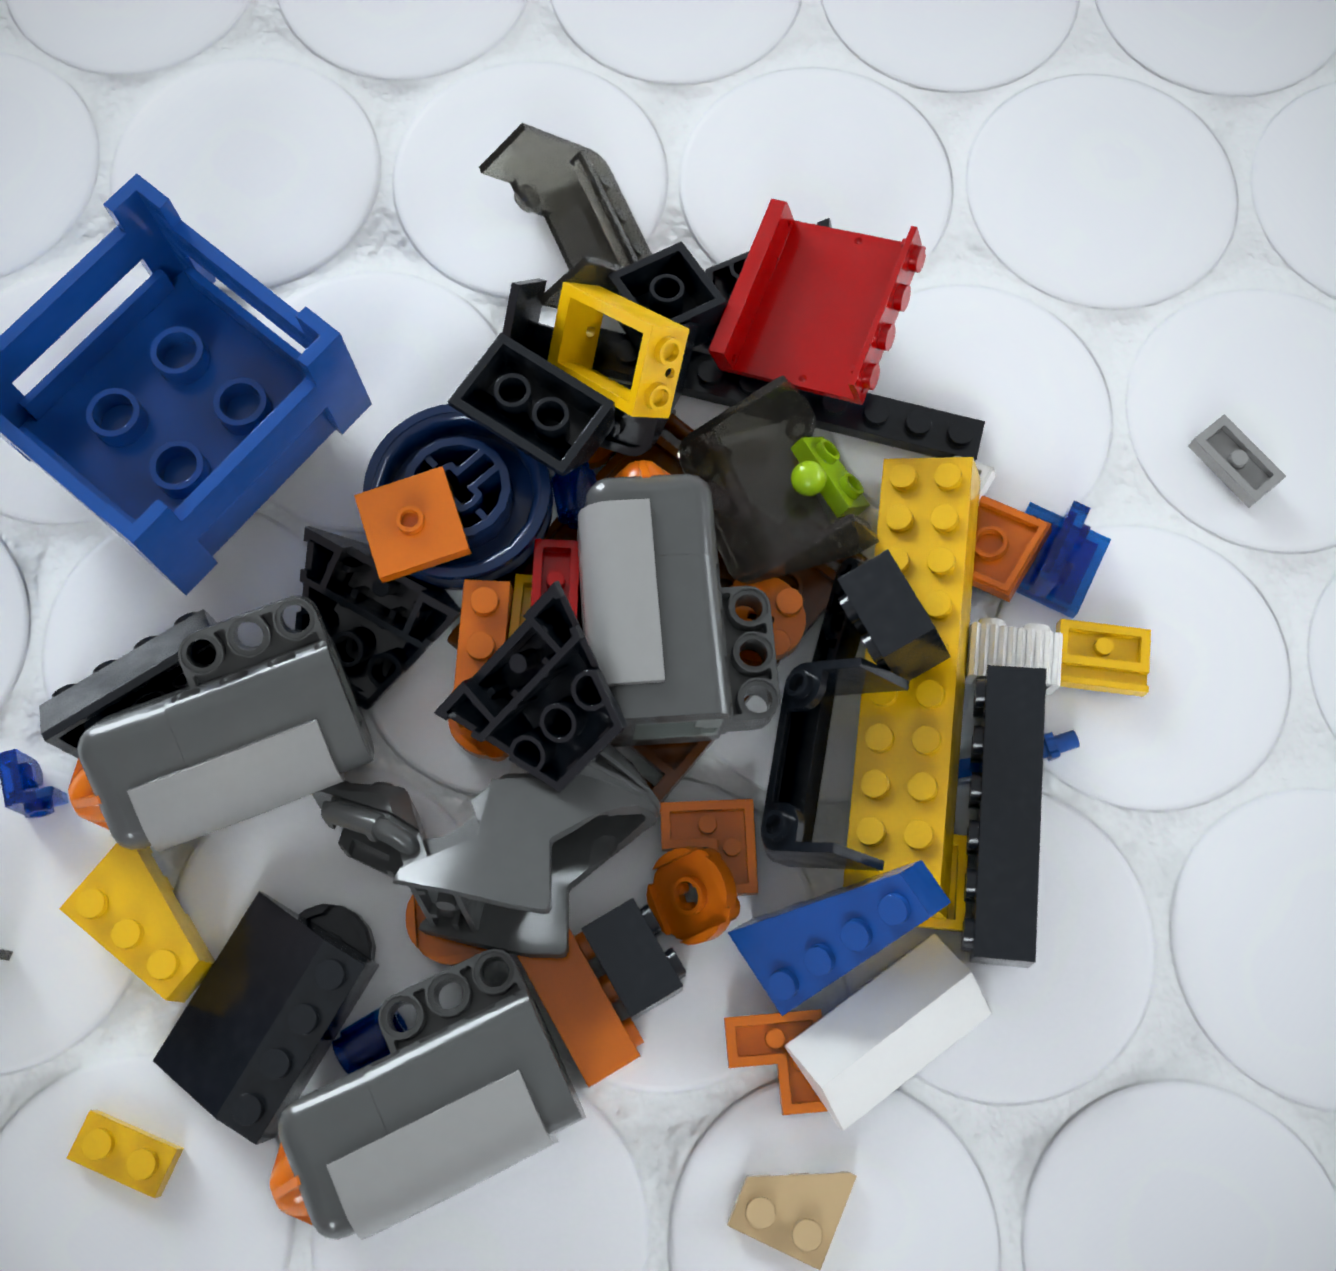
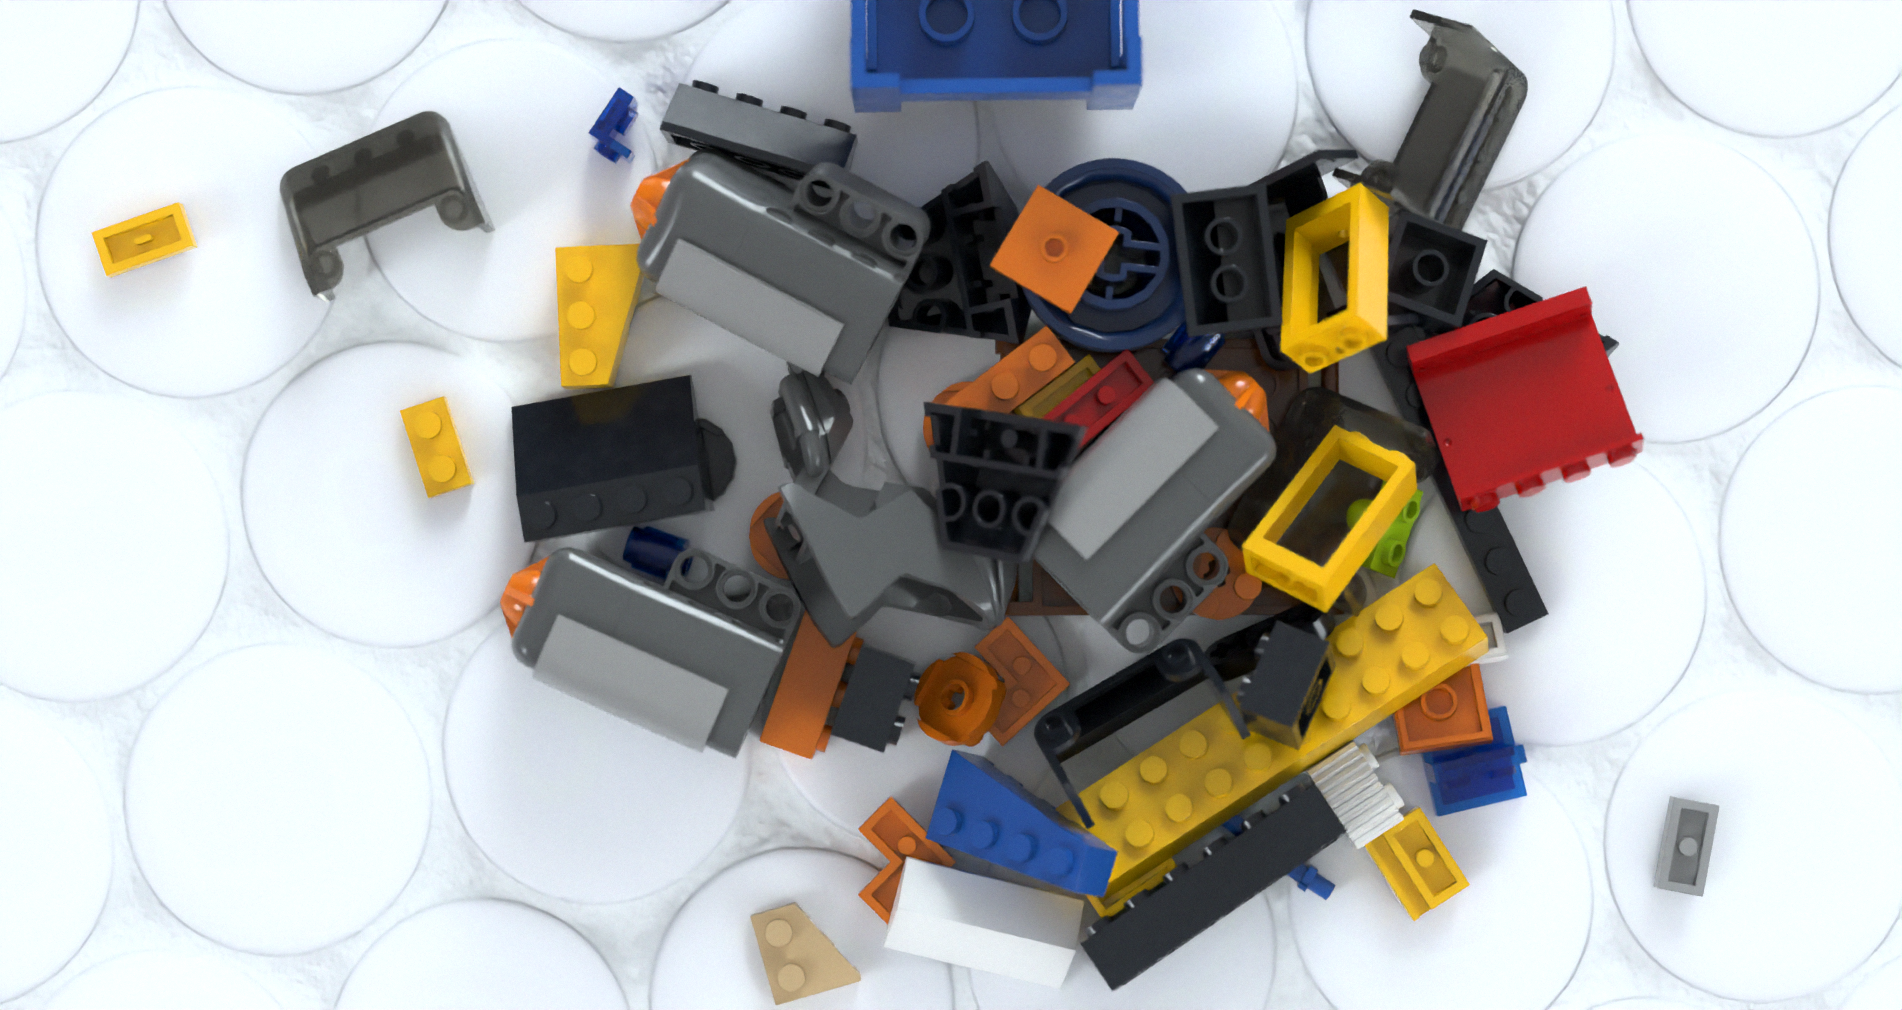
camera: 45 degrees right, 15 degrees up
(827, 529) = (1301, 577): none -> yellow window

